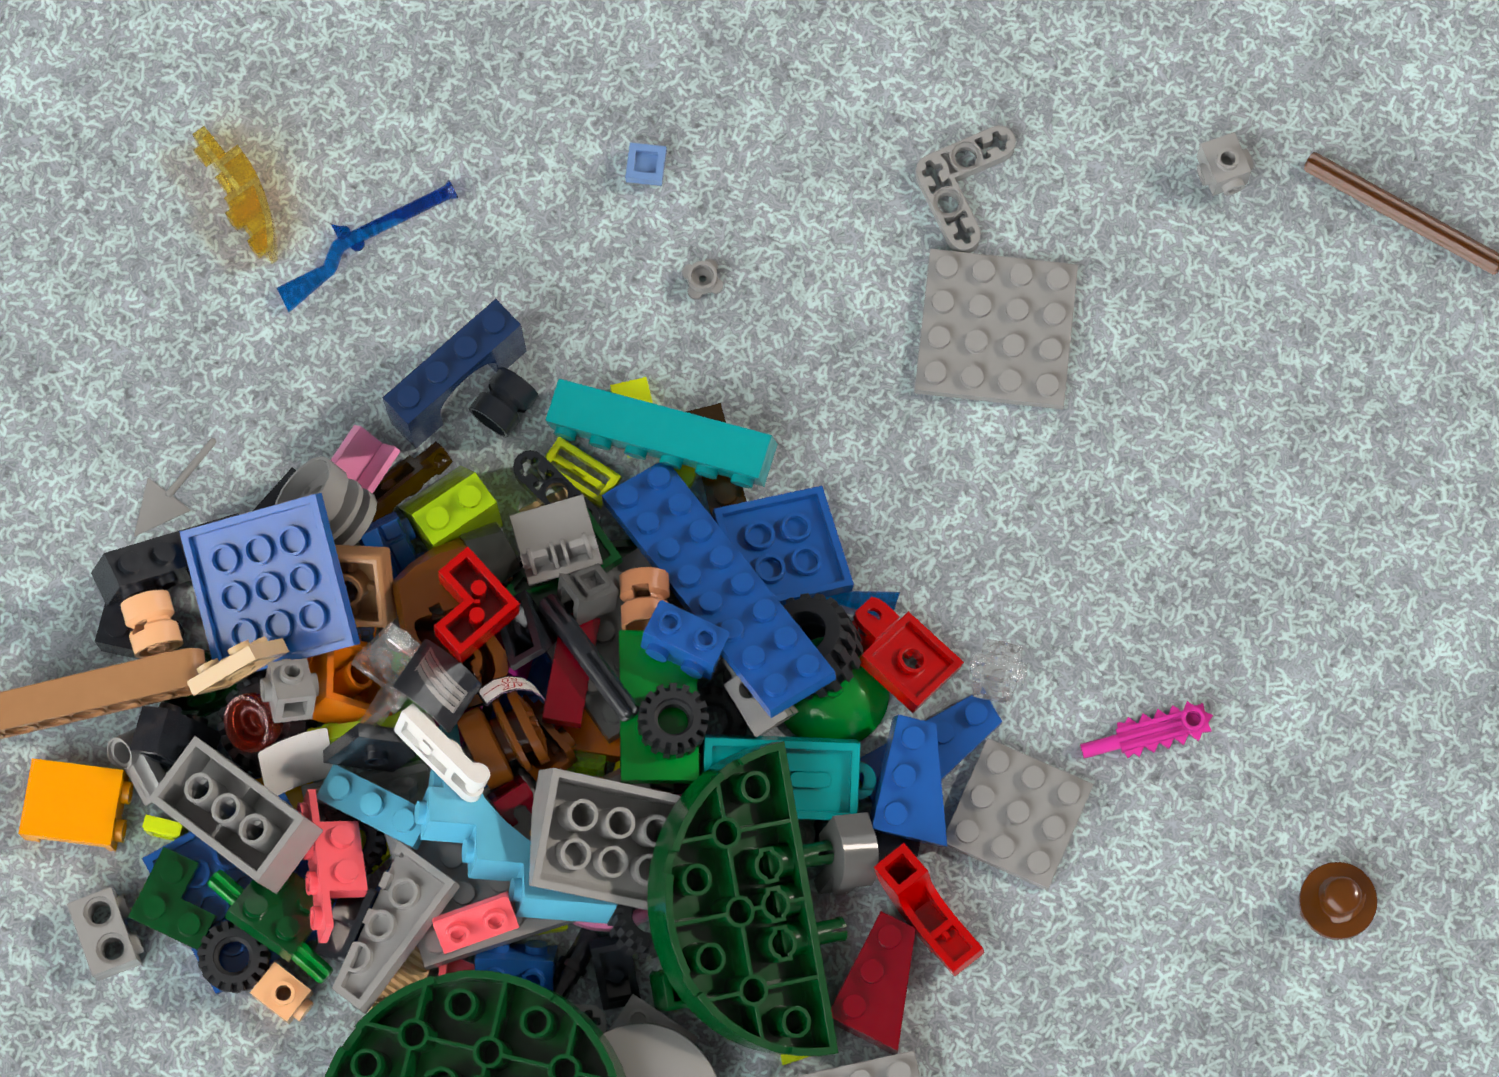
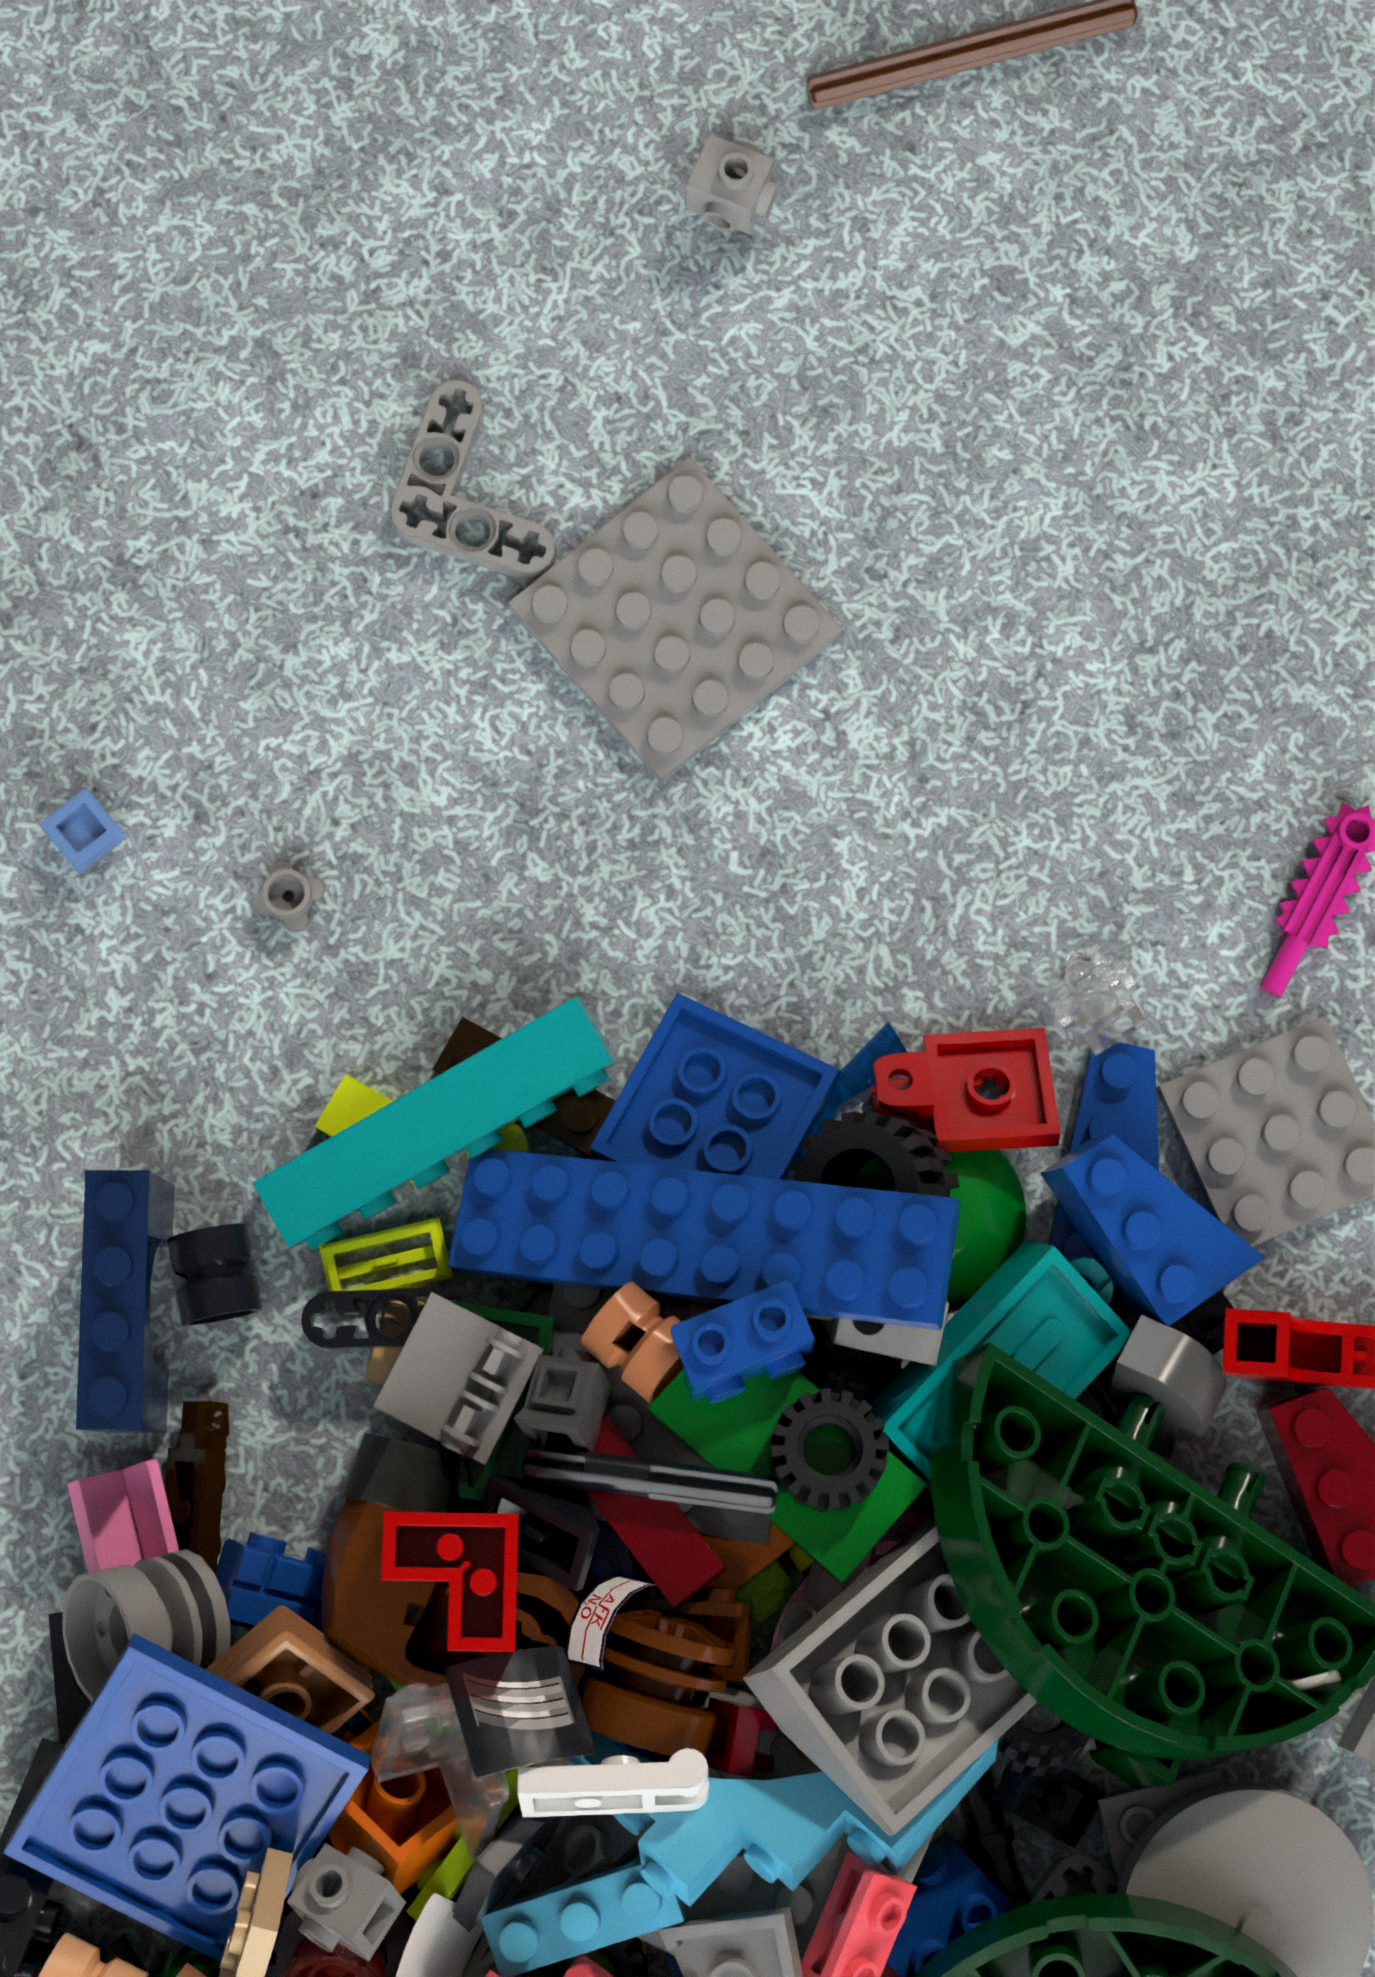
camera: 50 degrees left, 5 degrees up
(451, 508) = (289, 1468): lime slope -> none

